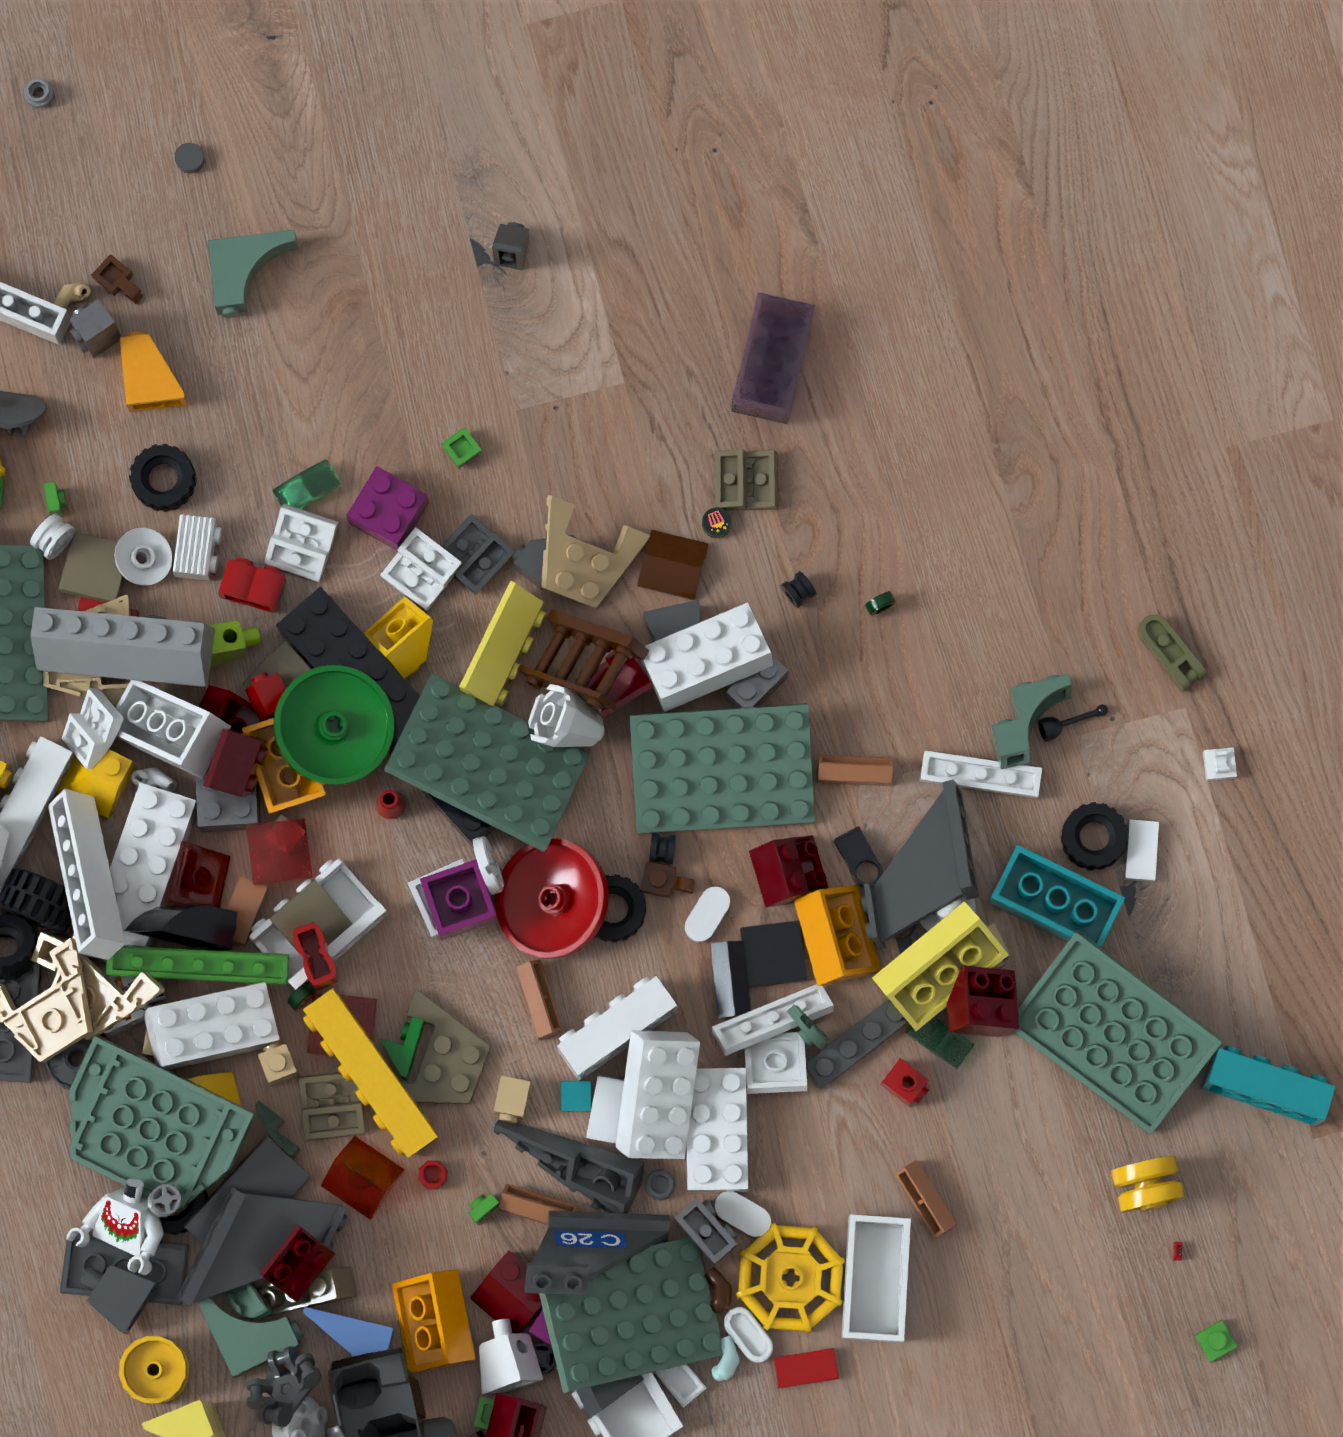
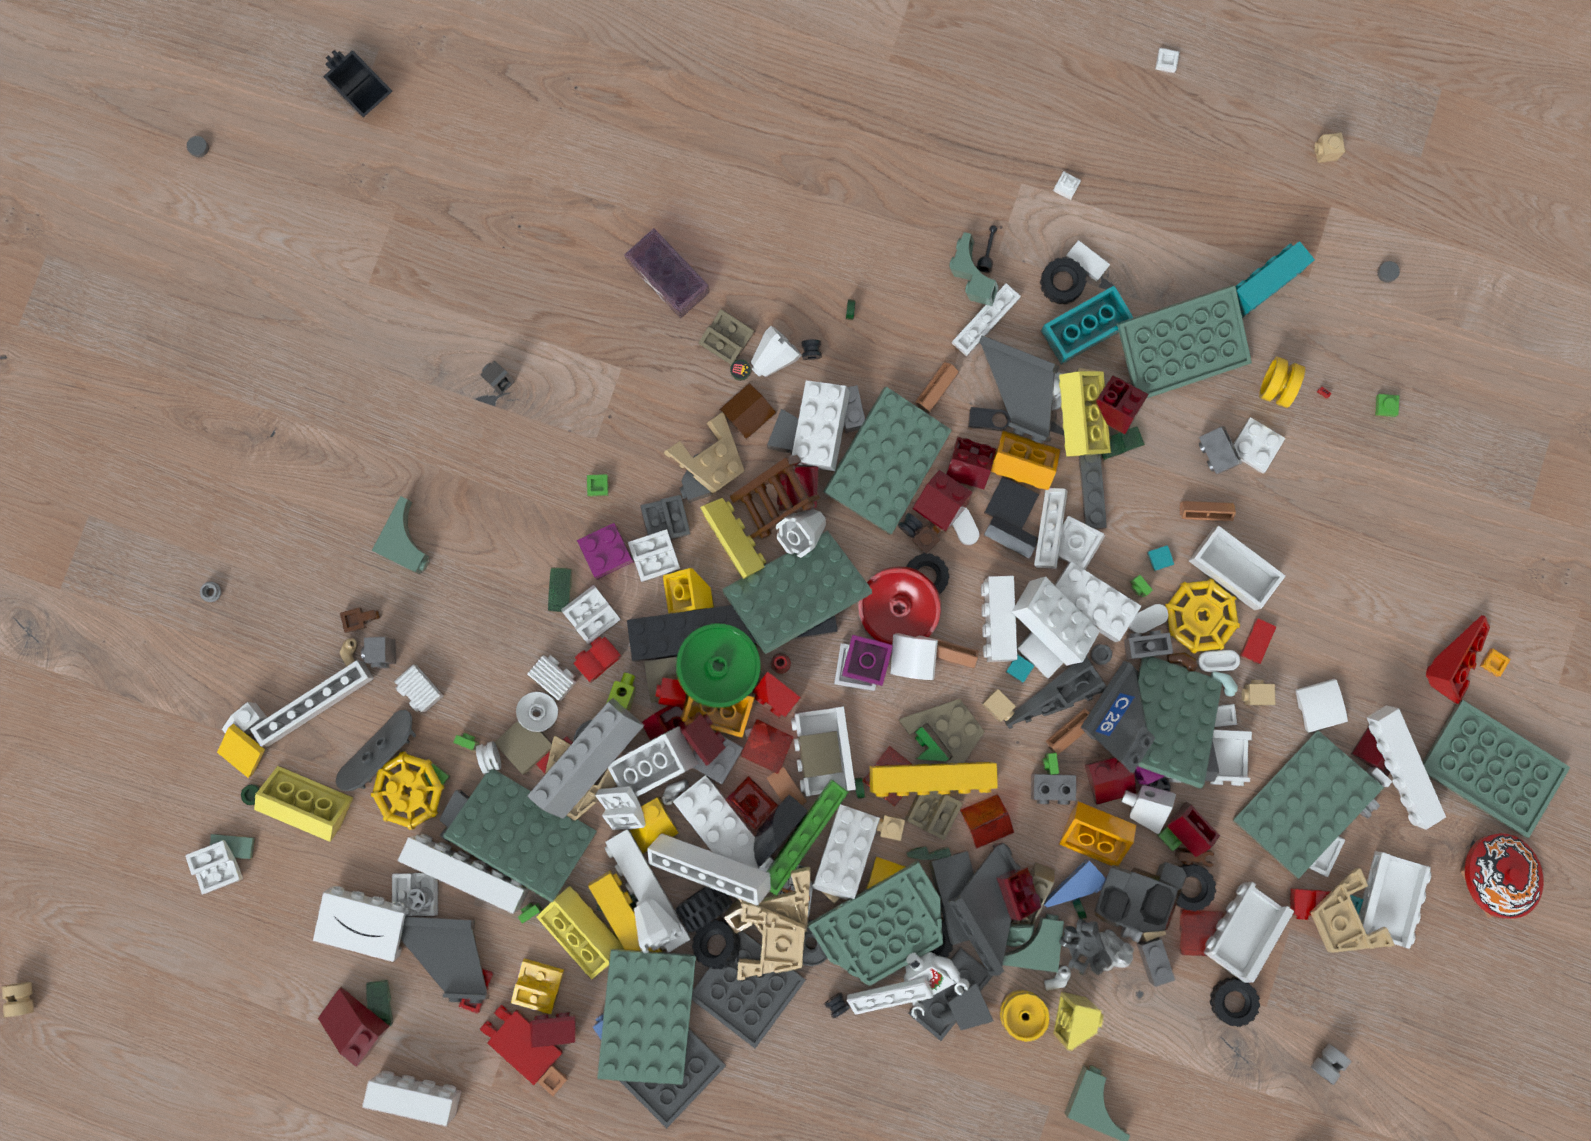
camera: 55 degrees left, 5 degrees up
(23, 1138) = (837, 1005): none -> black wheel
(74, 1191) = (890, 996): none -> white tile
(80, 403) = (418, 689): none -> white brick
(147, 376) = (429, 639): light orange slope -> none
(162, 455) = (485, 658): black tyre -> none
(169, 1199) = (936, 943): light grey wheel -> none
(189, 158) = (312, 529): dark grey tile -> none
(226, 1391) = (1060, 979): none -> white arm
(314, 950) = (853, 766): red brick -> none
(329, 1354) = (1079, 908): none -> dark green tile
(346, 822) = (776, 695): none -> red slope
(432, 1175) = (1012, 780): red tile -> none
(454, 1229) = (1053, 787): none -> flat silver brick
(488, 867) = (858, 630): white tile -> none
(502, 955) = (913, 656): none -> white slope
(717, 865) = (942, 500): none -> dark red slope
(738, 1408) = (1258, 693): none -> tan brick
(763, 547) = (773, 353): none -> white cone
(774, 1176) = (1140, 586): none -> bright green plate
(809, 1030) = (1072, 511): sand green plate -> none
(828, 1180) = (1160, 558): none -> teal tile
(905, 1083) = (1134, 478): red brick -> none
(1011, 1164) = (1219, 450): none -> flat silver brick
(1052, 1209) = (1257, 445): none -> white plate
(1170, 651) = (985, 168): olive plate -> none

